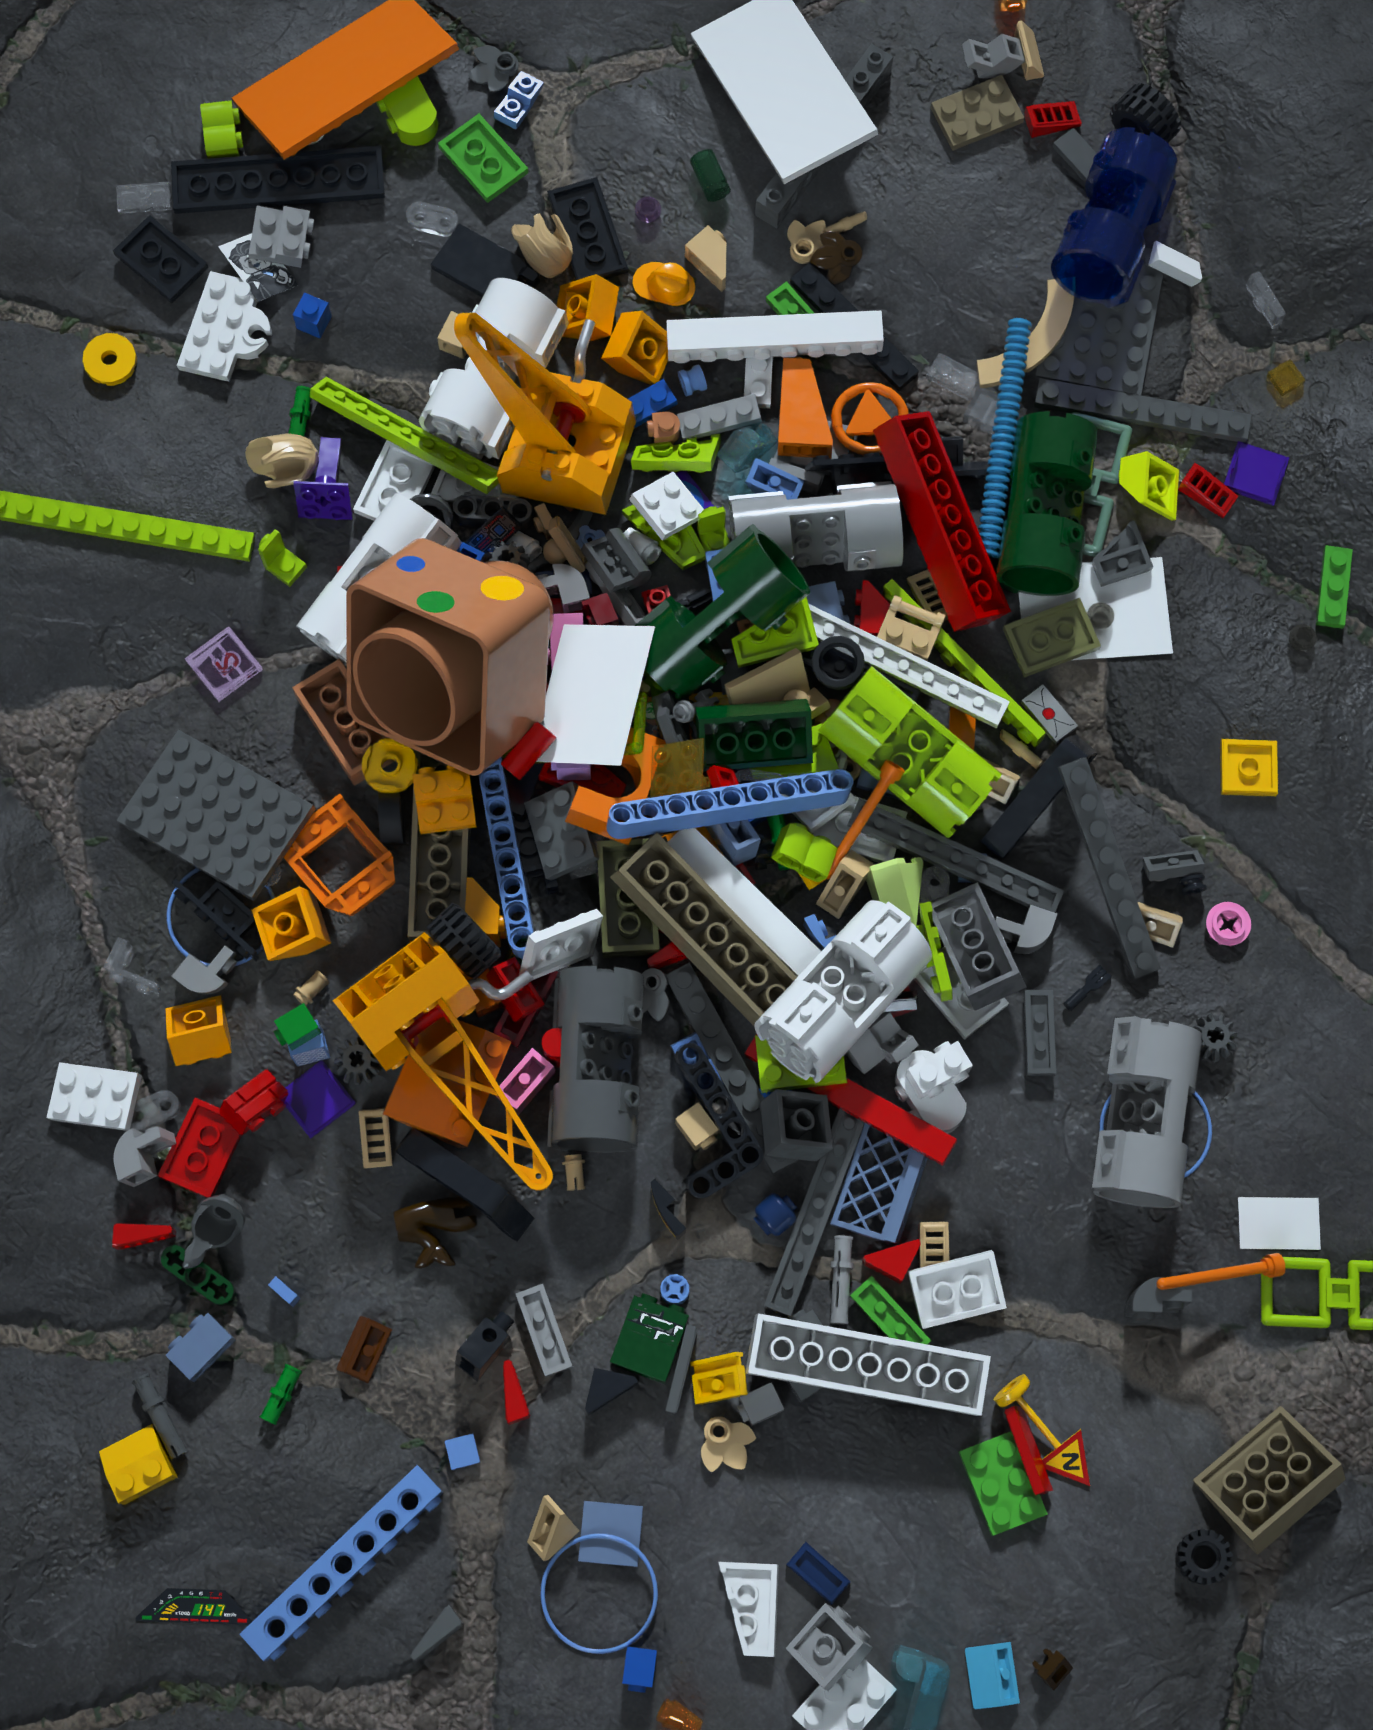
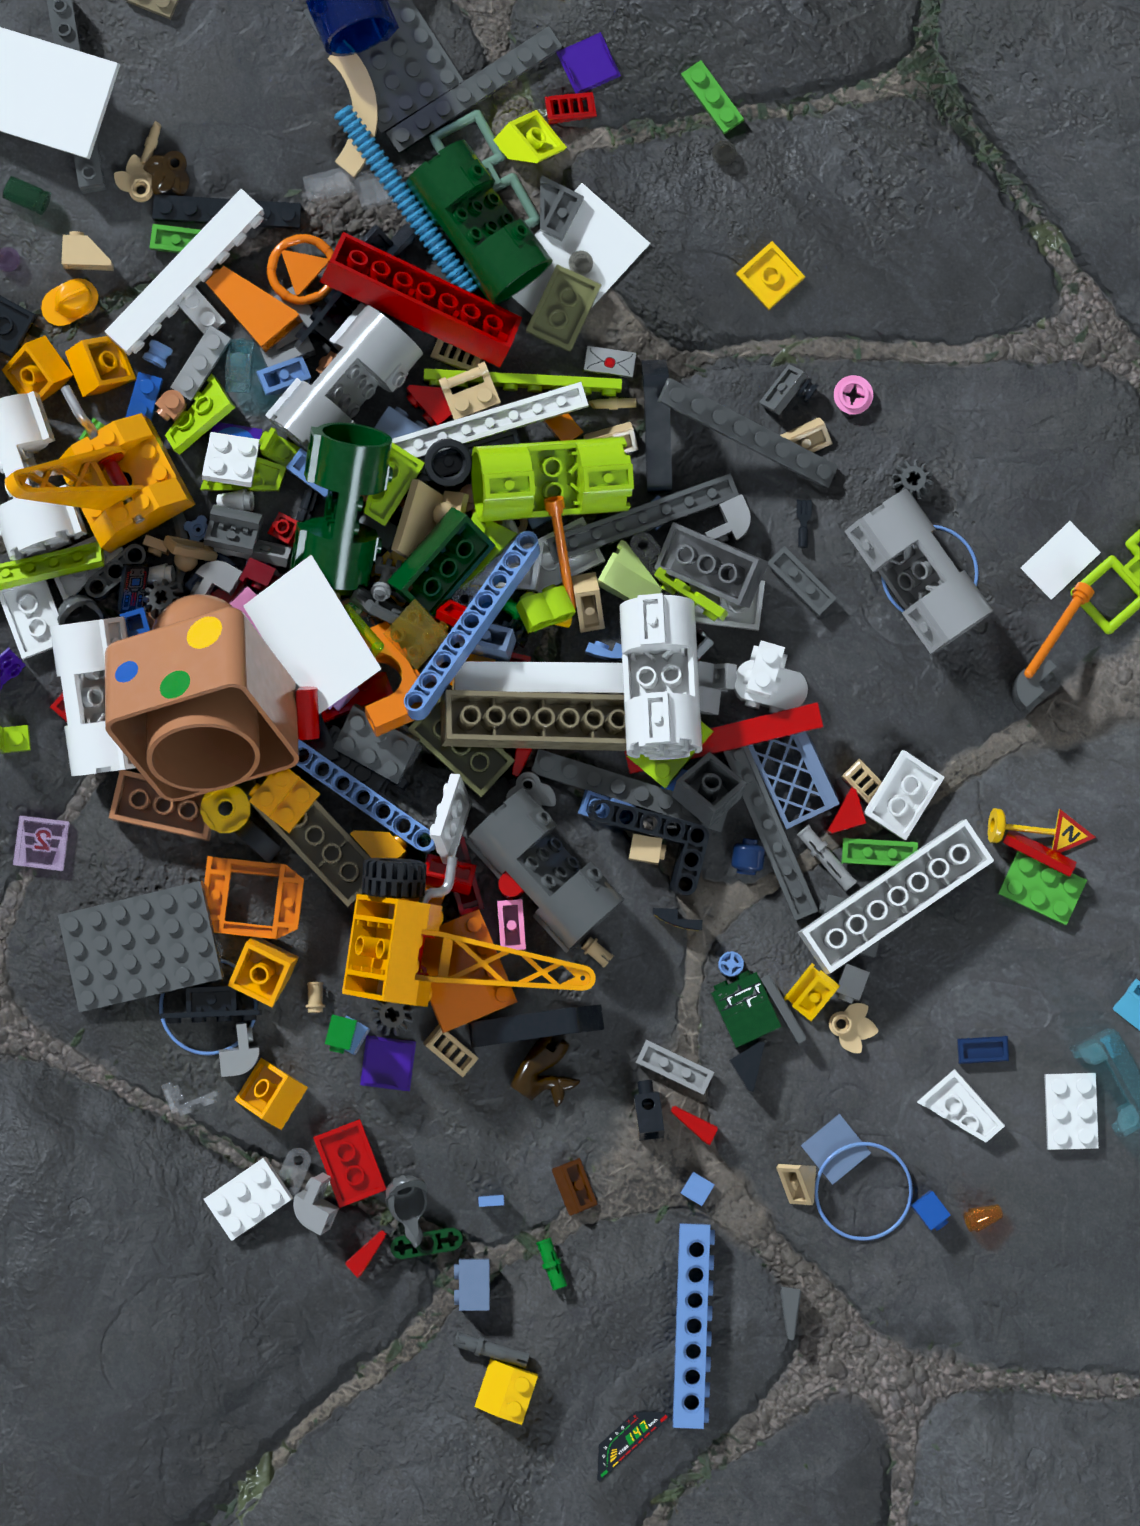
camera: 45 degrees left, 10 degrees up
(254, 1102) = (354, 1104): red brick -> none
(829, 1646) = (1032, 1086): light grey plate -> none

